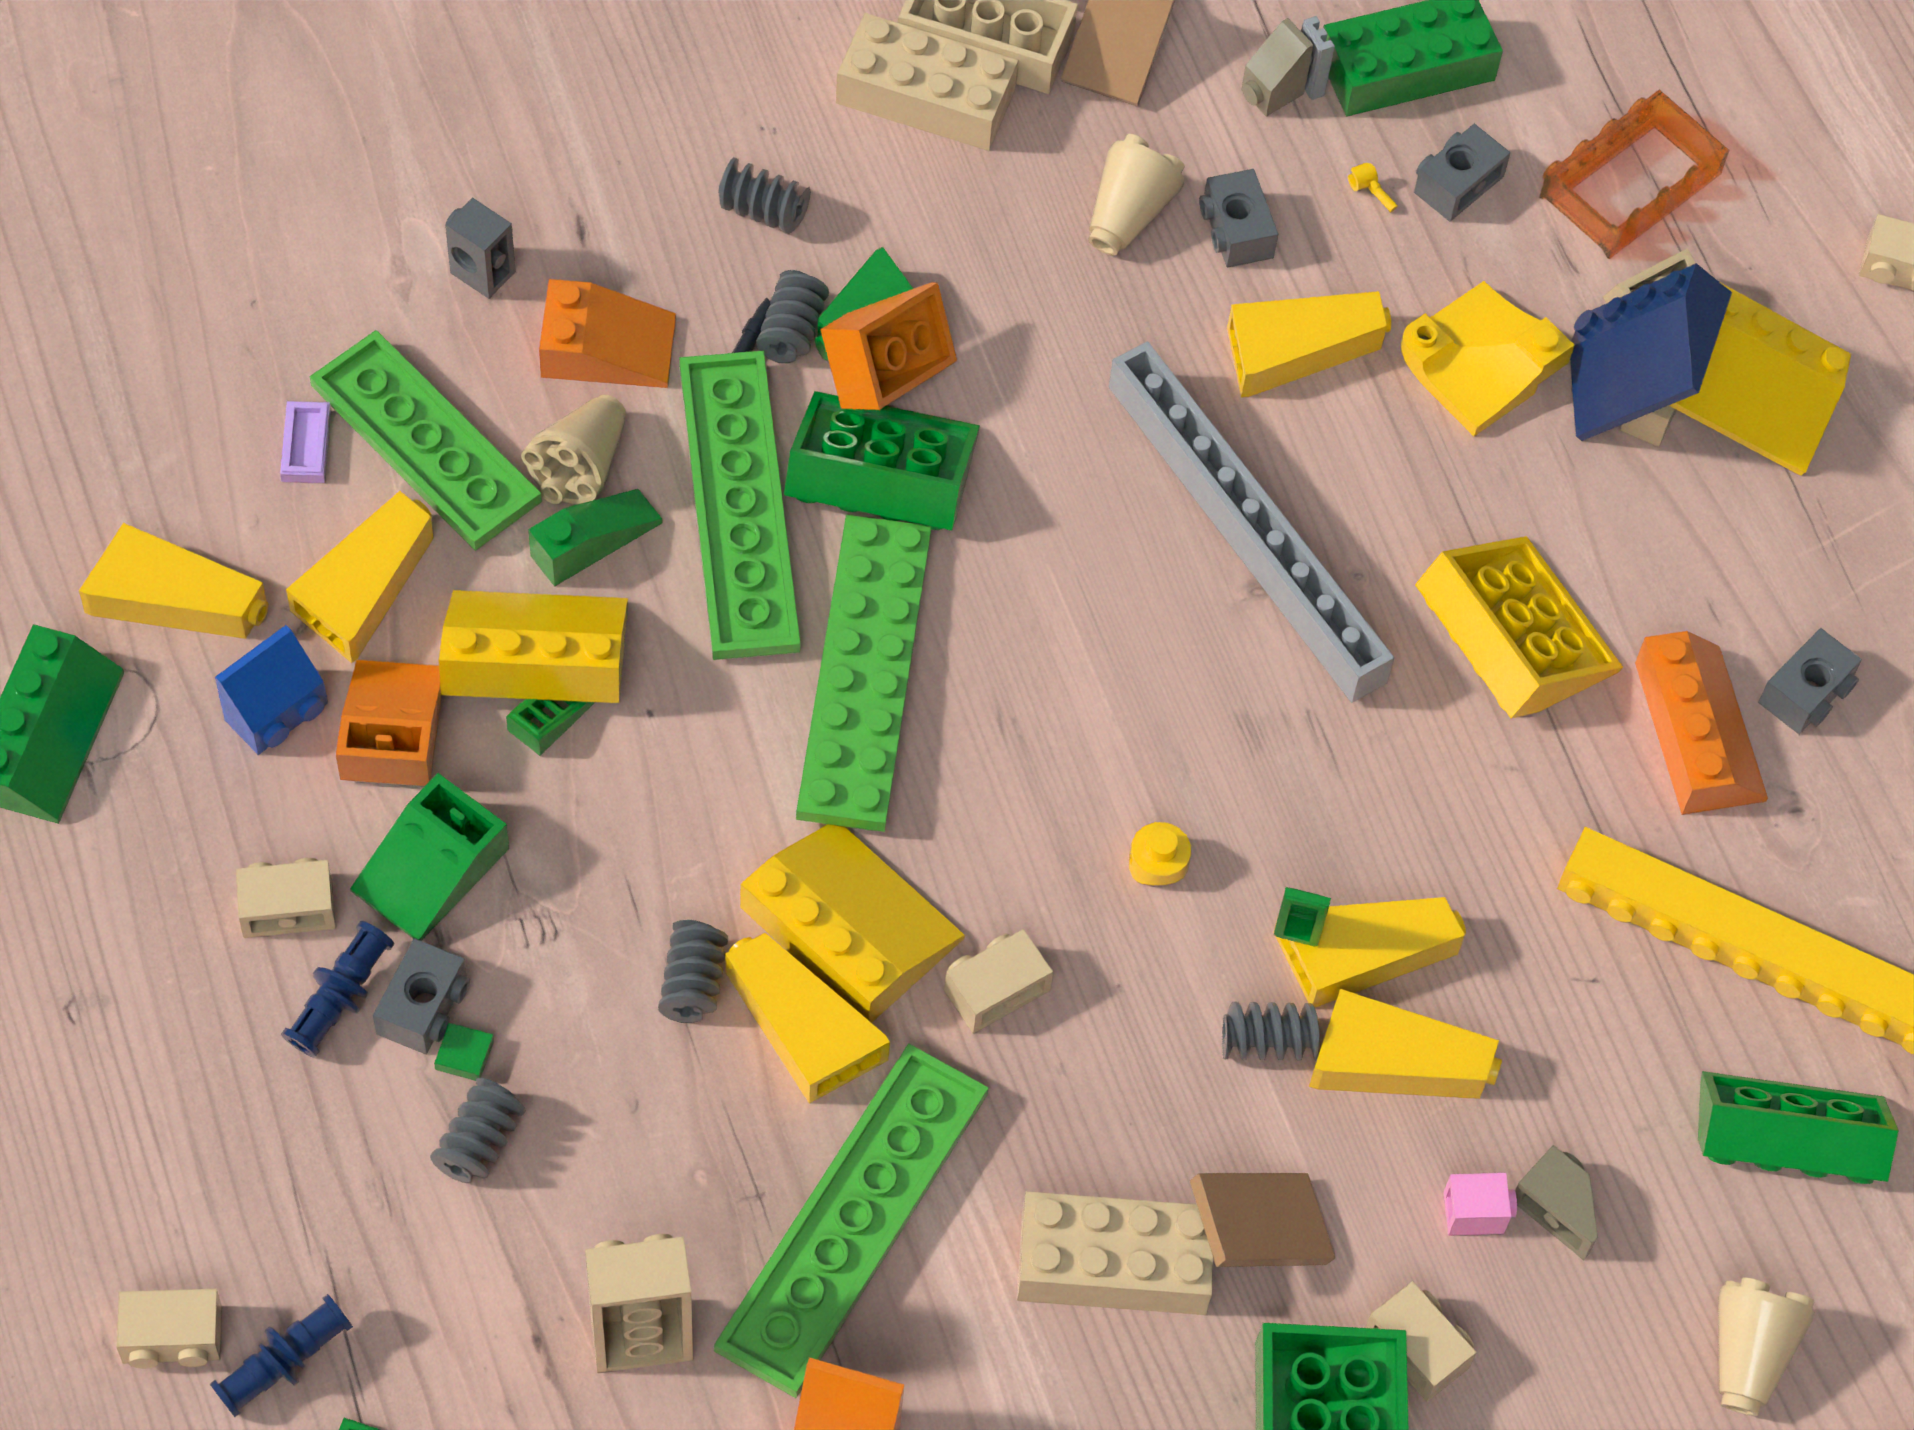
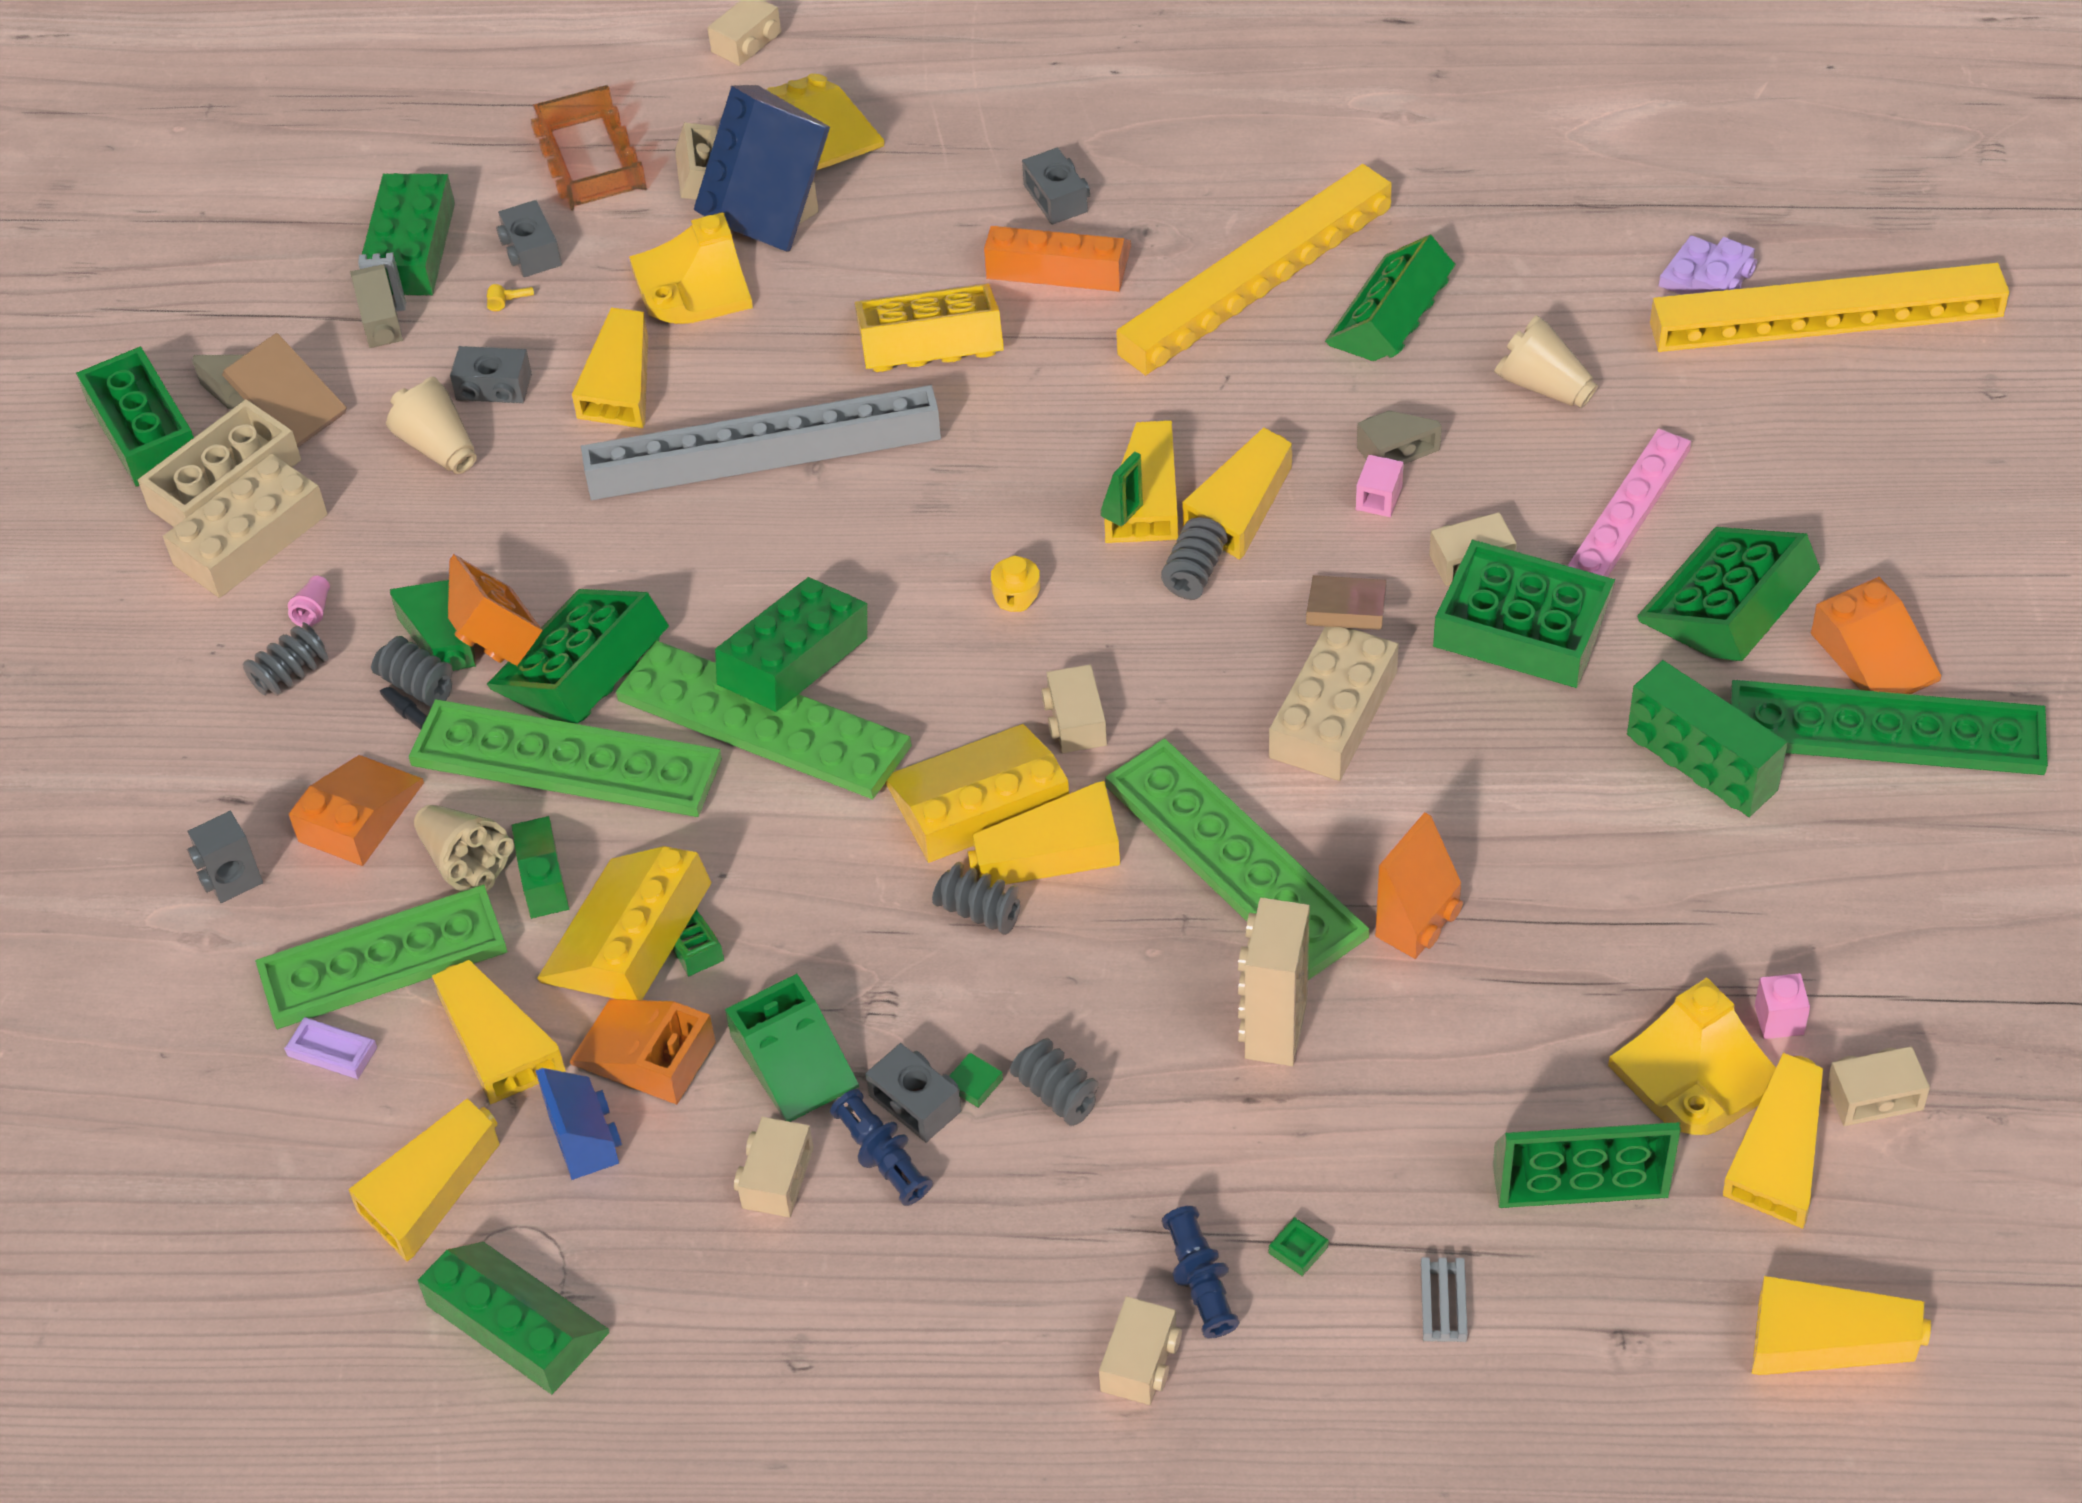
camera: 60 degrees left, 10 degrees down
(852, 183) = (309, 602): none -> bright pink cone
(959, 656) = (791, 644): none -> green brick

